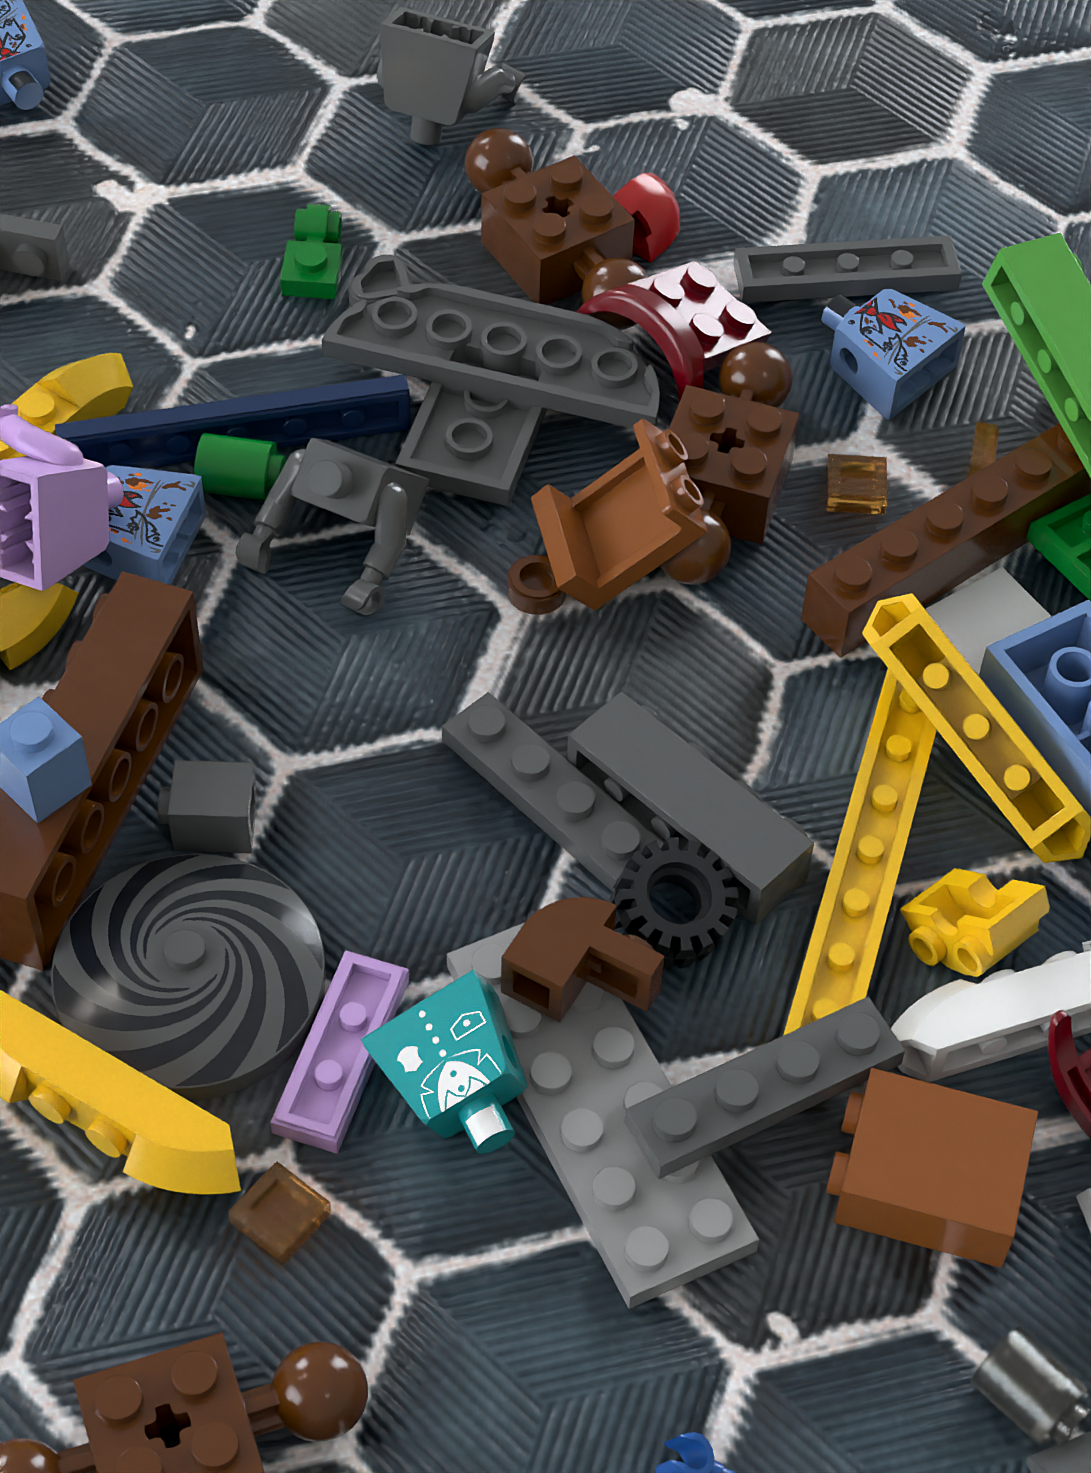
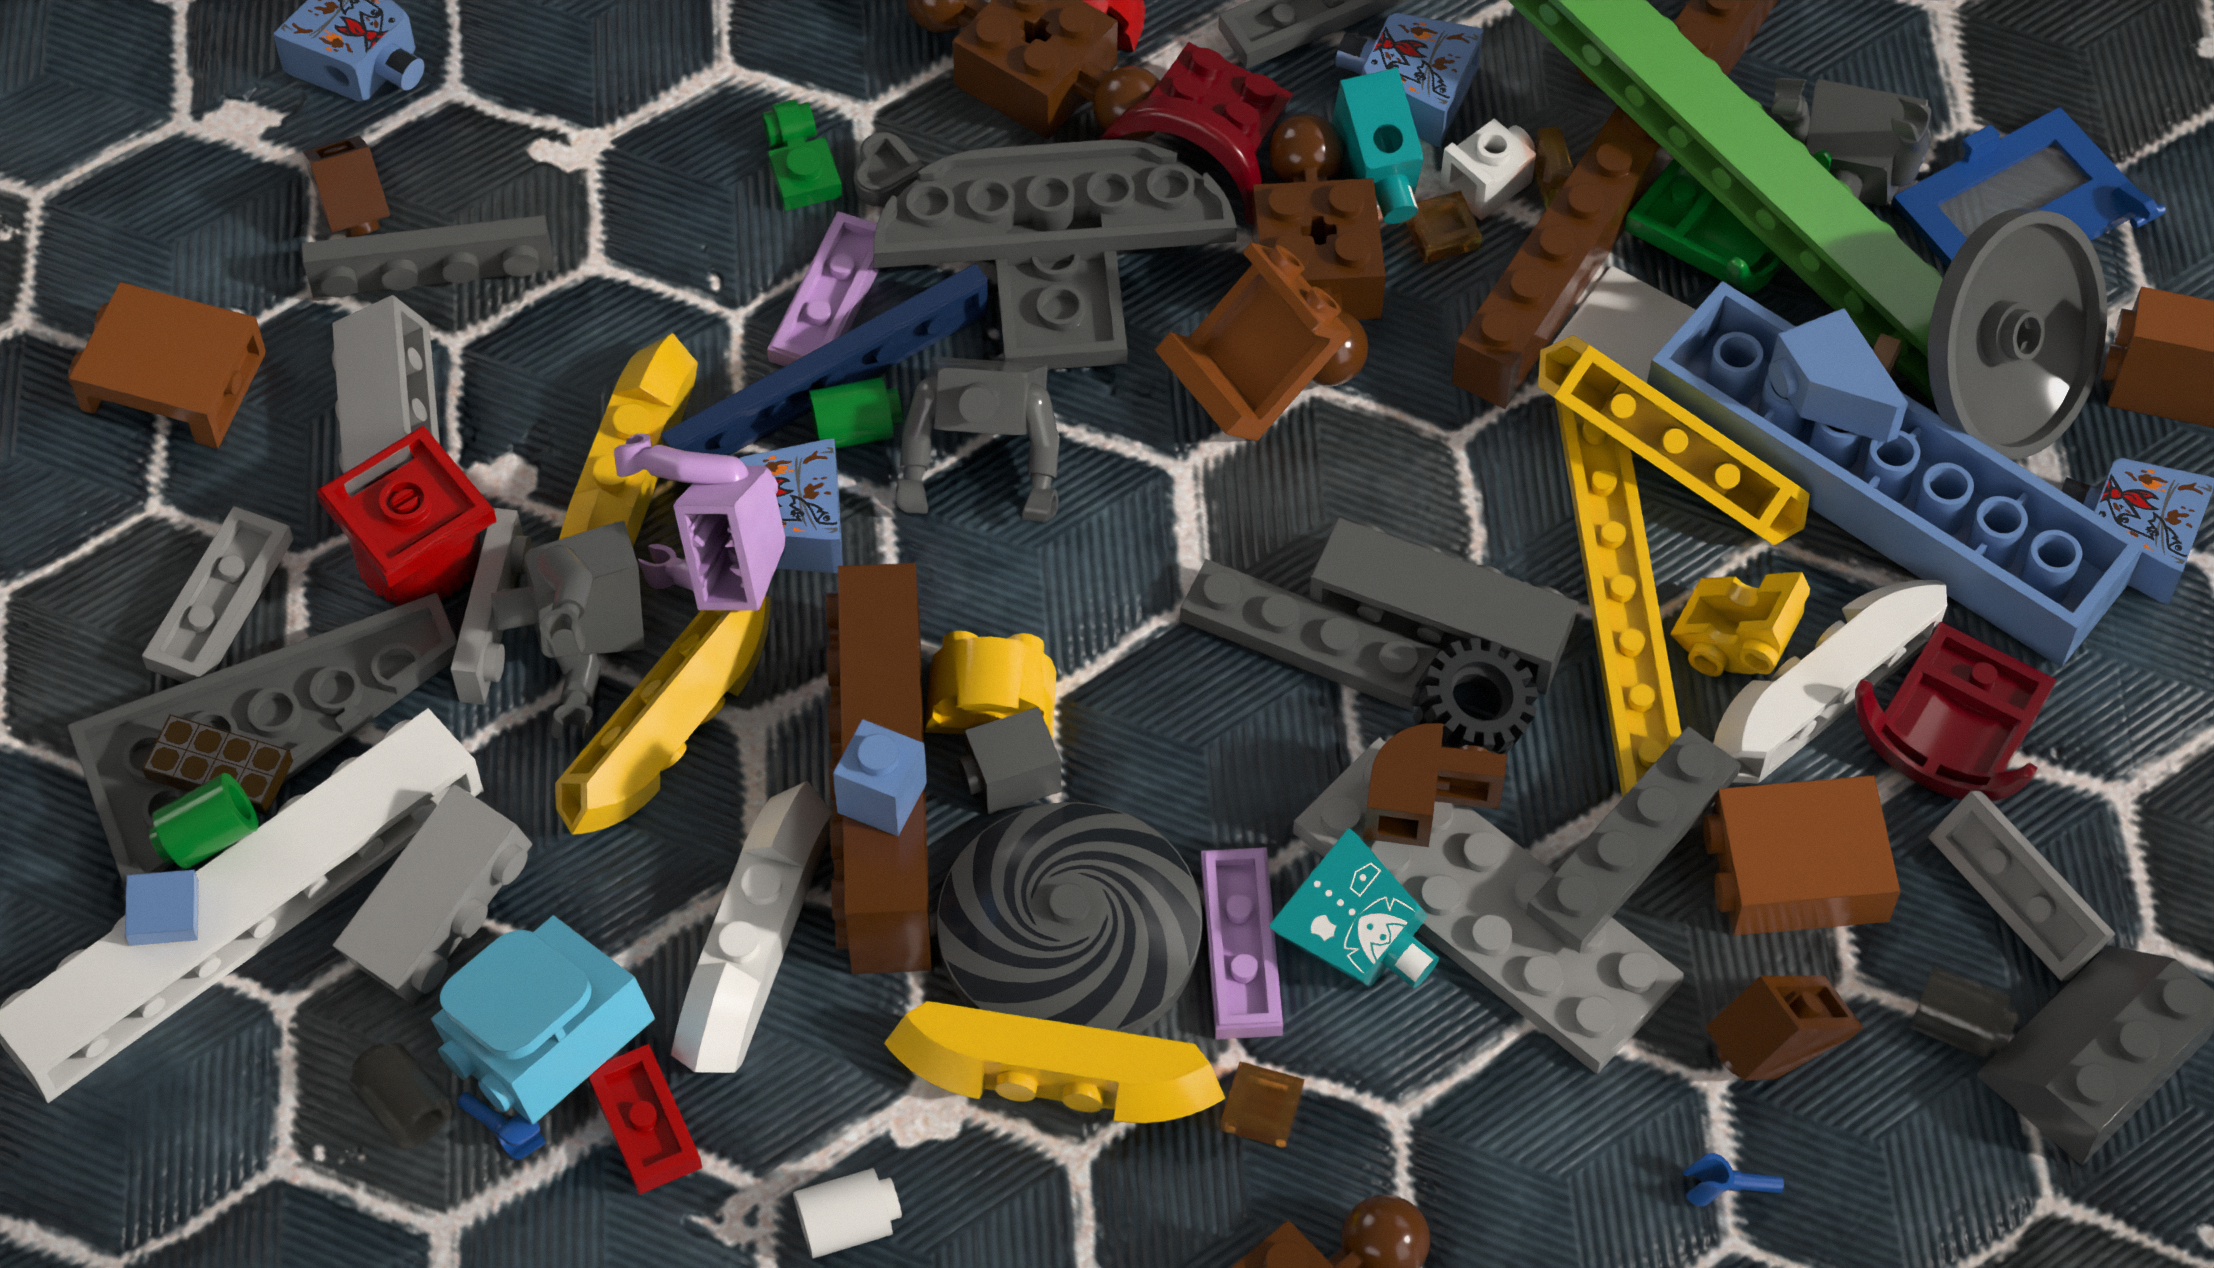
camera: 20 degrees left, 5 degrees up
(237, 726) = (987, 680): none -> yellow cylinder
(281, 365) = (829, 291): none -> lavender tile
(533, 586) = (1192, 435): reddish brown tile -> none
(824, 402) = (1380, 140): none -> teal torso
(834, 1329) = (1781, 1026): none -> reddish brown slope
(921, 445) = (1489, 166): none -> white brick

